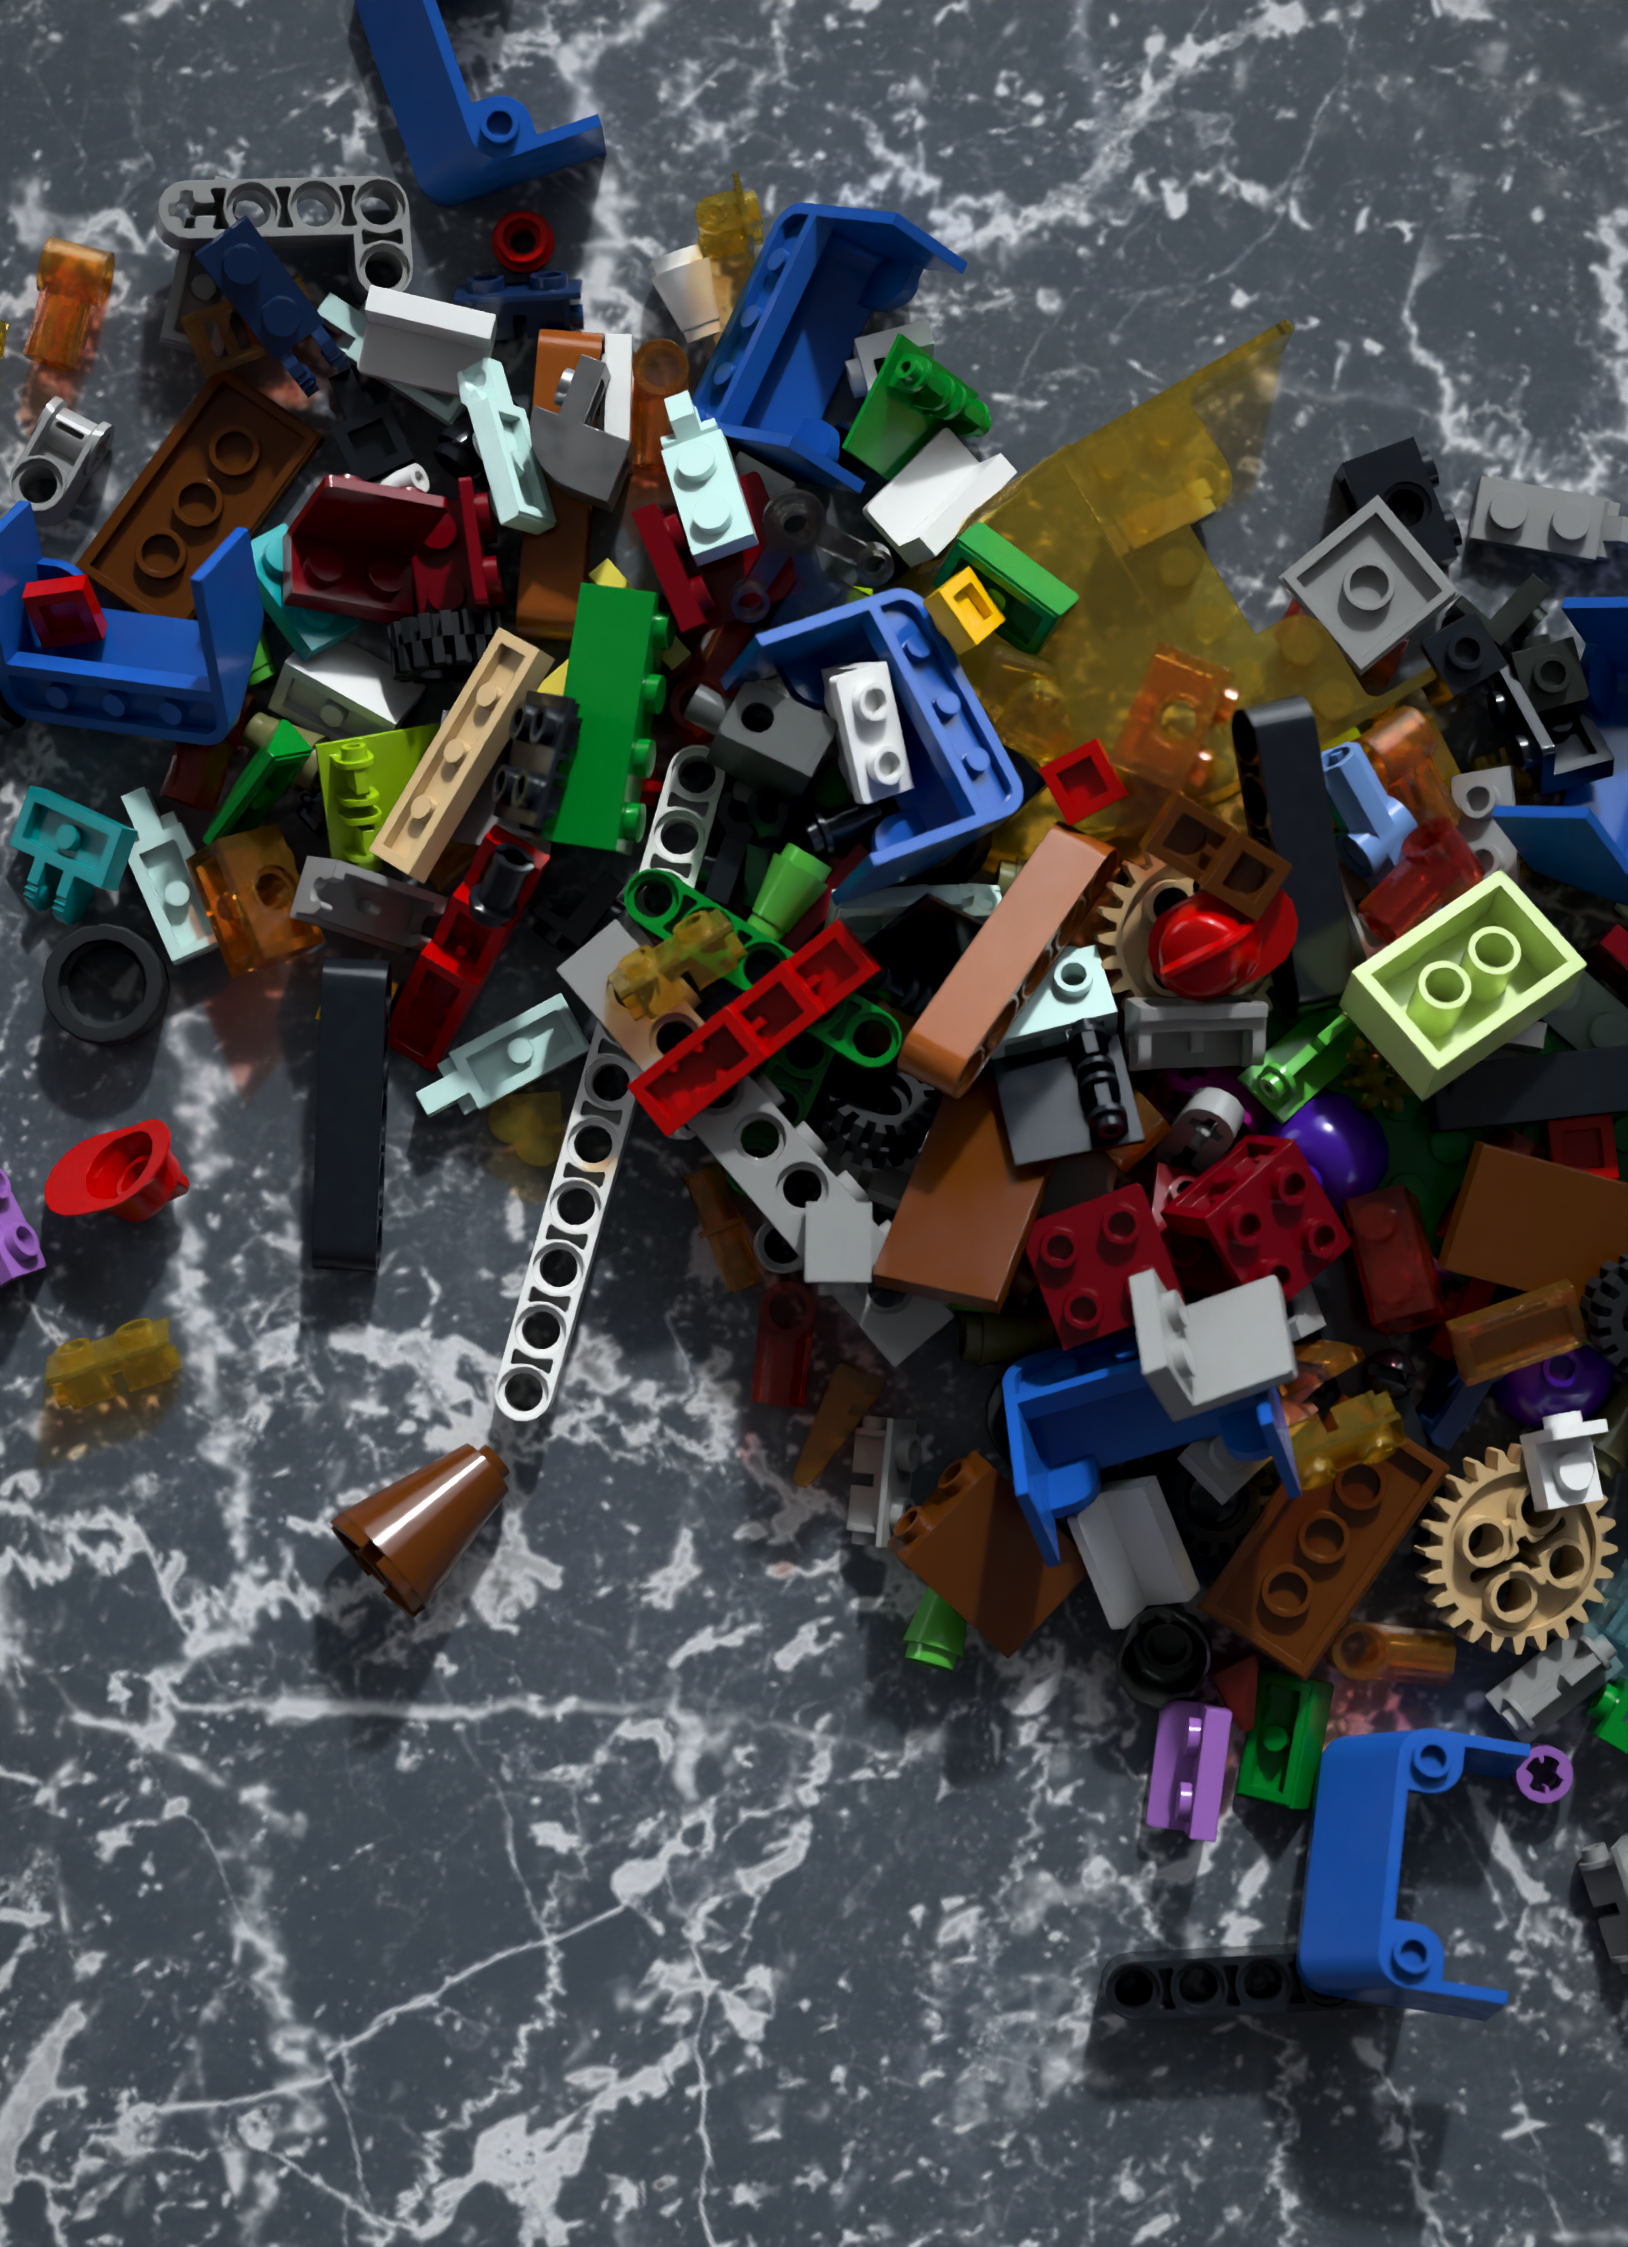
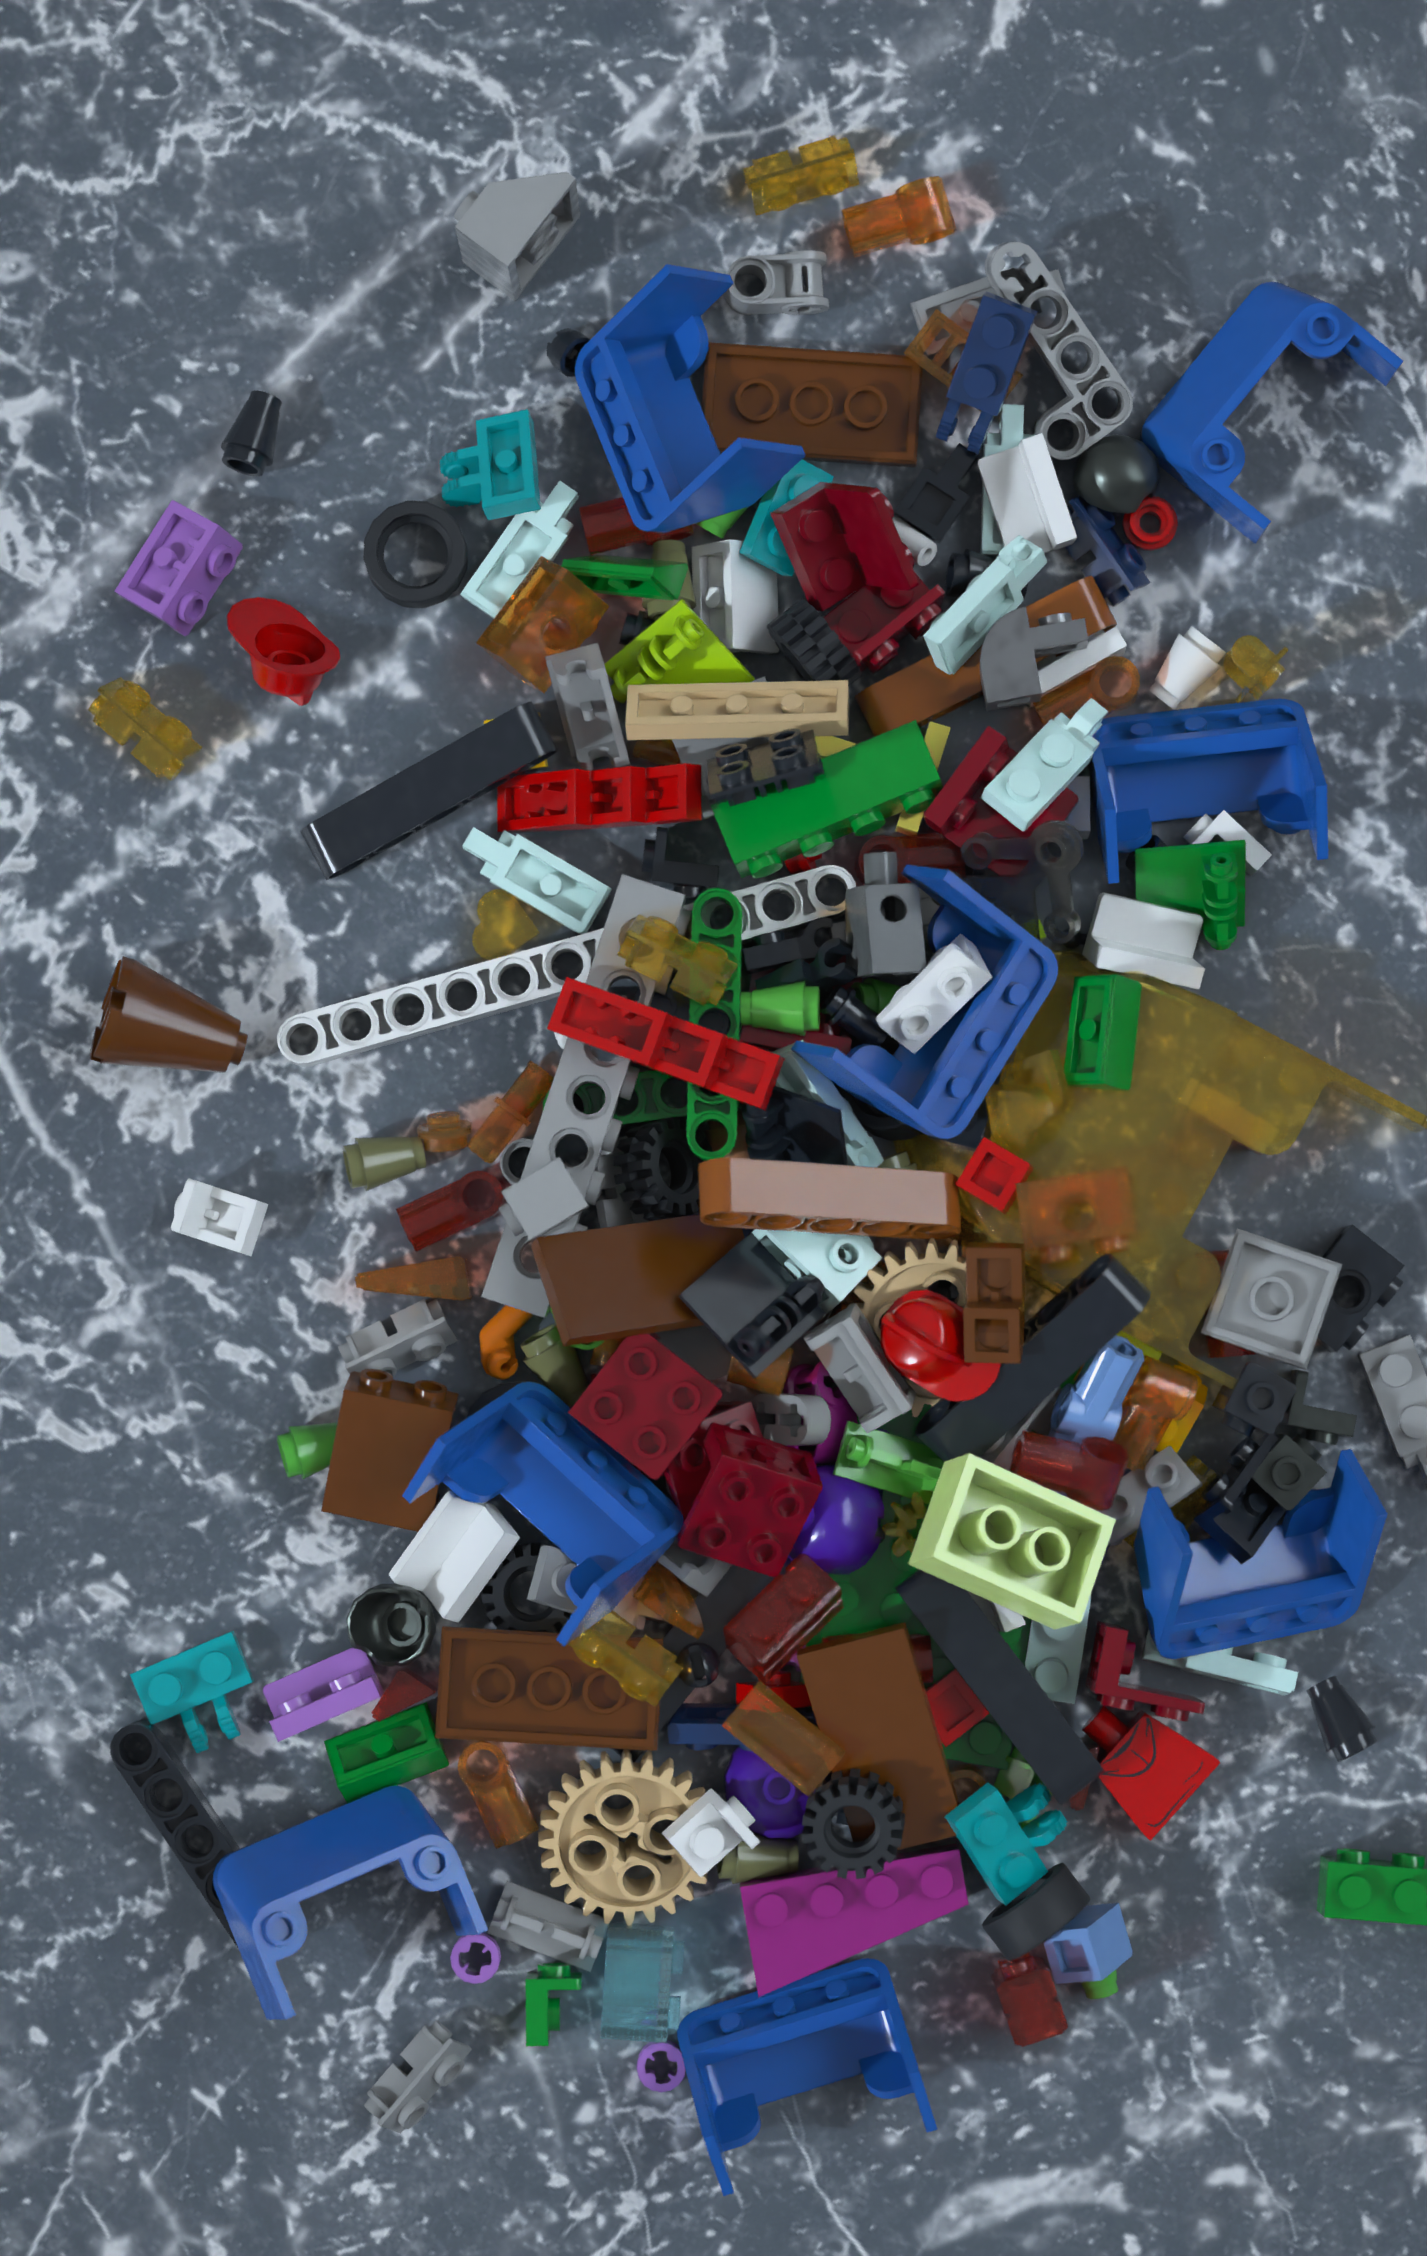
camera: 65 degrees right, 0 degrees up
(64, 611) = (669, 357): red plate -> none
(455, 242) = (1117, 474): none -> pearl dark grey hair
(494, 899) = (646, 797): black pin -> none
(650, 1583) = (218, 1216): none -> white bracket
(692, 1386) = (382, 1160): none -> olive cone
(702, 1306) = (444, 1132): none -> clear orange plate
(945, 1381) = (497, 1342): none -> orange arm
(963, 611) = (1065, 1011): yellow plate -> none
(1096, 1888) = (191, 1680): none -> teal hinge
(1214, 1347) = (631, 1516): light grey bracket -> none

